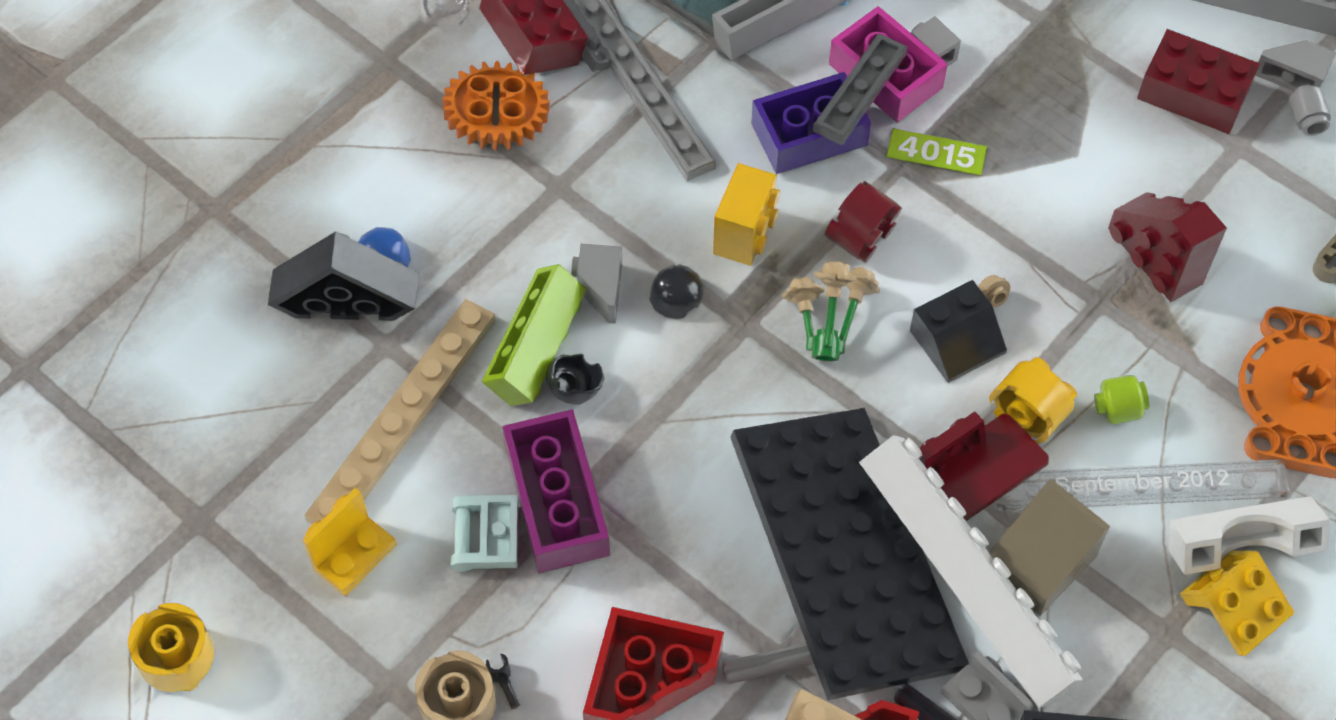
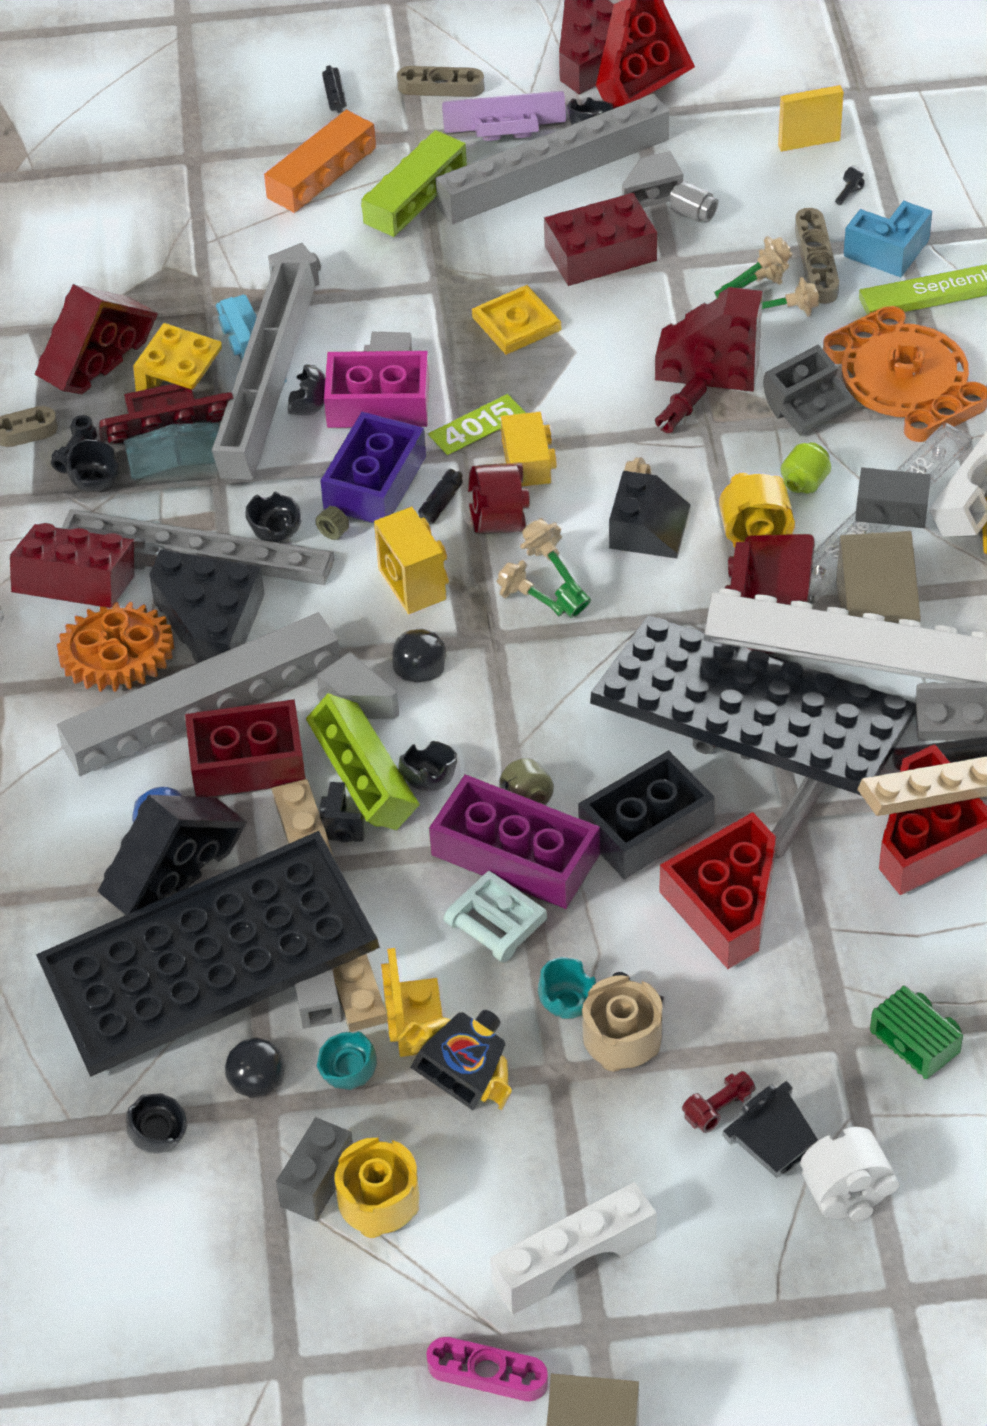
camera: 45 degrees left, 10 degrees down
(112, 464) = (155, 1123): none -> black hair
(155, 587) = (310, 1172): none -> dark grey brick
(218, 487) = (254, 1067): none -> black hair
(267, 540) = (347, 1060): none -> teal hair
(281, 378) = (206, 952): none -> black plate
(308, 473) = (318, 1001): none -> light grey brick
(329, 612) = (462, 1057): none -> torso
(456, 628) = (564, 987): none -> teal hair
(476, 254) = (244, 748): none -> dark red brick
(476, 358) = (338, 823): none -> black bracket
(505, 188) = (217, 683): none -> light grey brick
(584, 129) = (207, 600): none -> black brick
(619, 456) = (528, 780): none -> olive head
(664, 558) = (648, 813): none -> black brick
(703, 99) = (273, 517): none -> black hair
(740, 139) = (332, 523): none -> olive axle
(837, 184) = (441, 495): none -> black axle
(839, 23) = (310, 396): none -> black hair
(860, 89) = (390, 412): dark grey tile -> none
(938, 201) = (527, 442): none -> yellow brick
(1063, 93) = (516, 319): none -> yellow tile
(1097, 265) = (681, 404): none -> dark red axle
(1152, 484) = (892, 497): none -> dark grey brick
(1201, 338) = (807, 390): none -> dark grey brick
(1297, 207) = (771, 265): none -> tan plant

